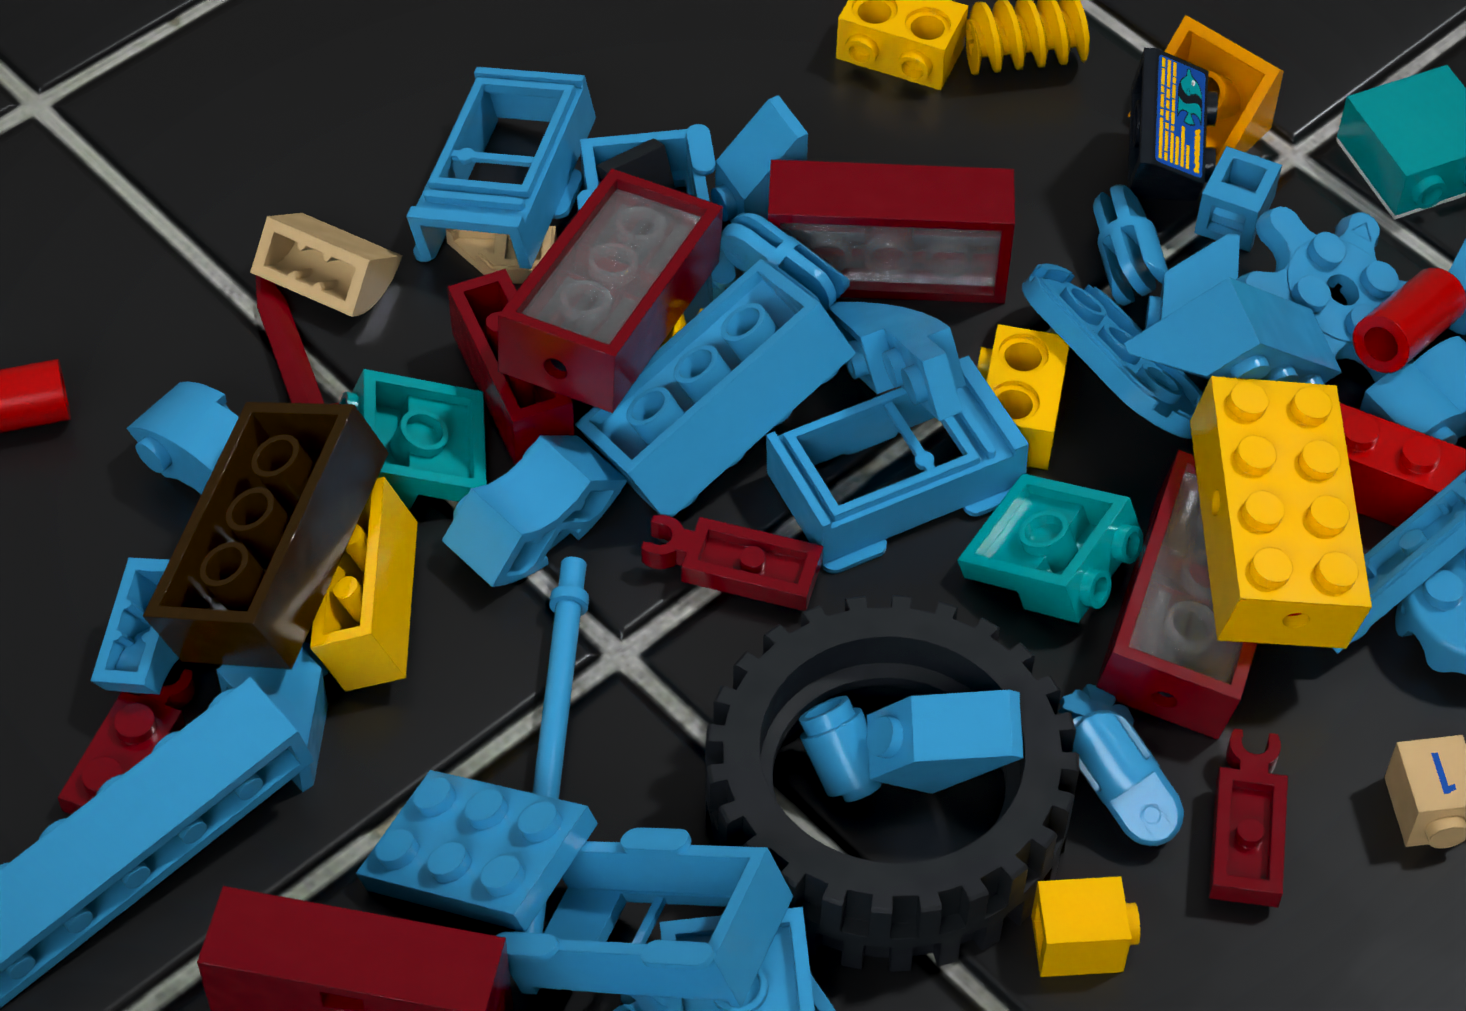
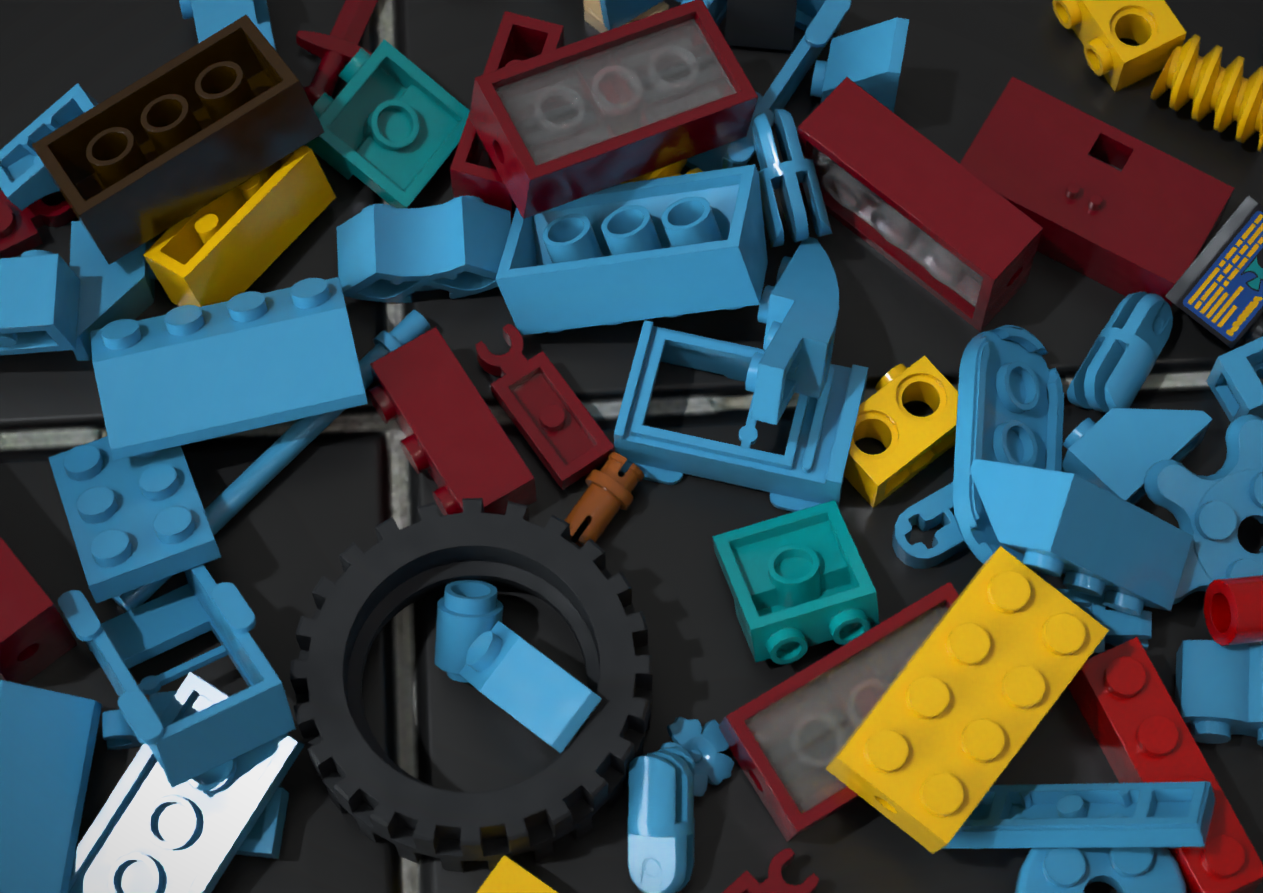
camera: 40 degrees right, 15 degrees up
(457, 690) = (226, 367): none -> dark azure slope
(674, 617) = (448, 427): none -> dark red brick
(844, 577) = (603, 498): none -> dark orange pin
(1053, 135) = (1097, 192): none -> dark red brick
(1103, 433) = (927, 514): none -> dark azure beam

